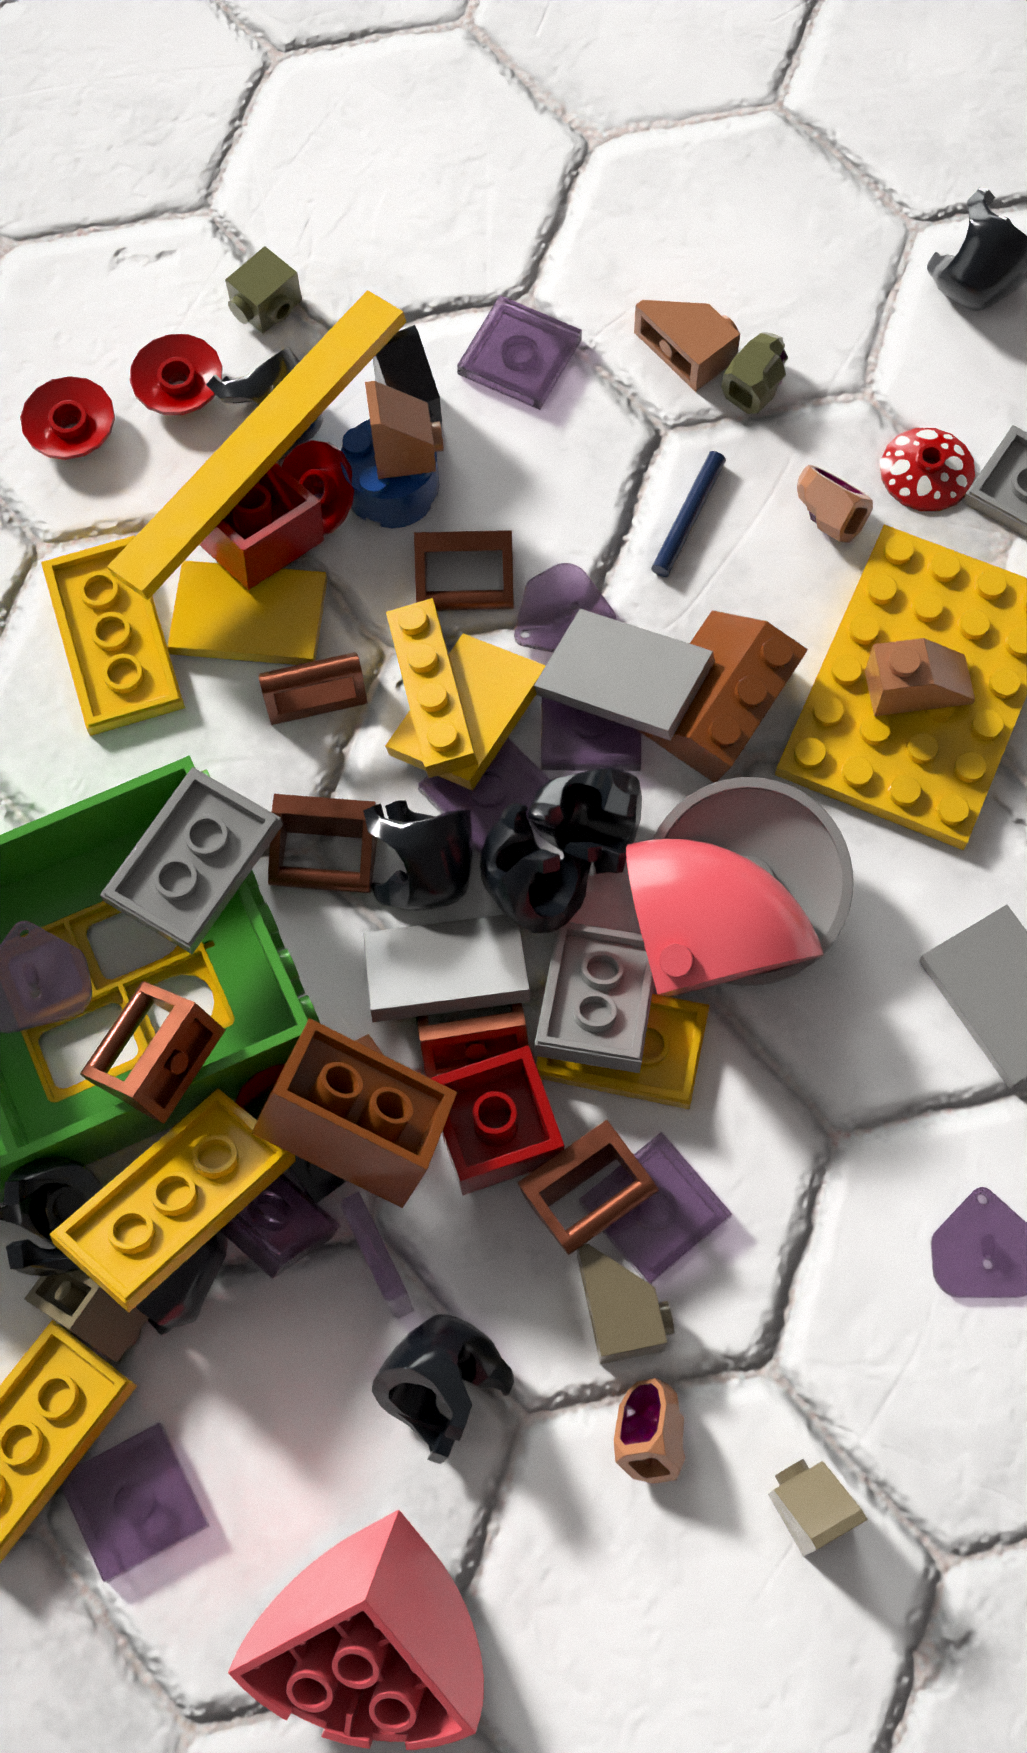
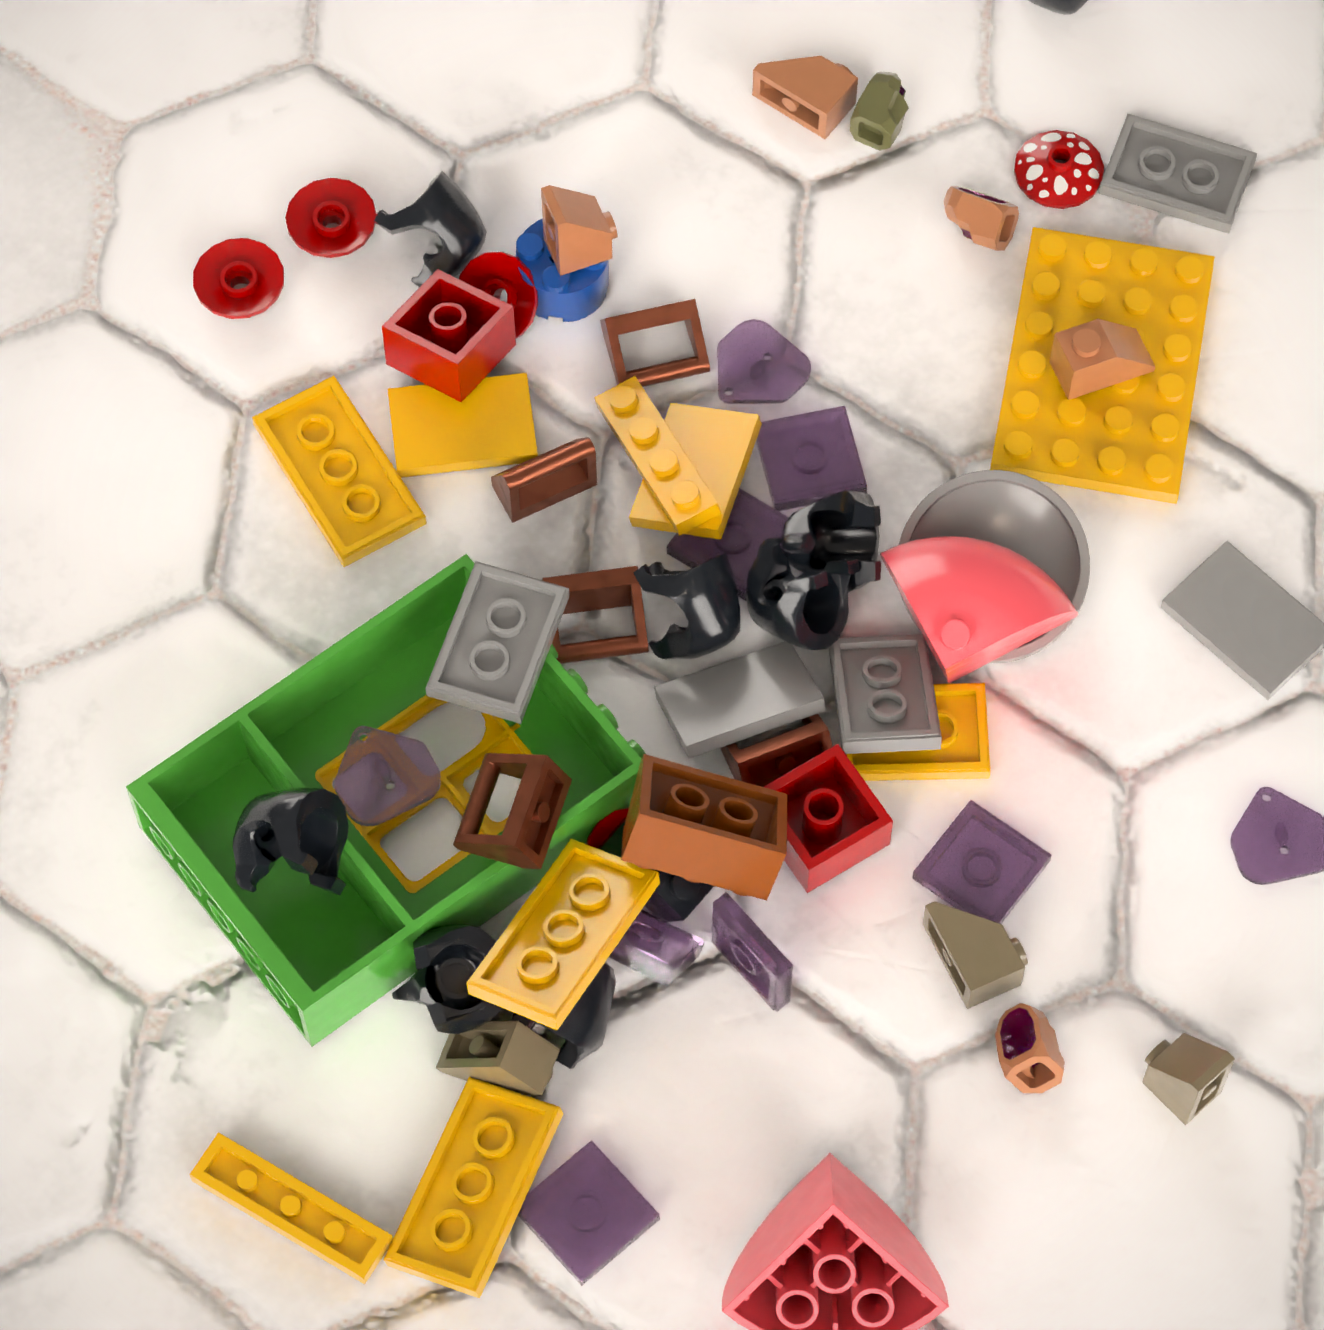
camera: 15 degrees left, 5 degrees down
(256, 445) = (443, 265): yellow tile -> none
(263, 290) = (391, 123): olive brick -> none
(405, 367) = (551, 163): black slope -> none
(433, 1364) = (820, 1027): black piece -> none
(519, 352) = (650, 134): clear purple tile -> none
(573, 1168) = (905, 840): copper tile -> none
(625, 673) = (833, 406): light grey tile -> none
(688, 514) = (849, 253): dark blue bar -> none
(737, 693) = (923, 406): dark orange slope -> none

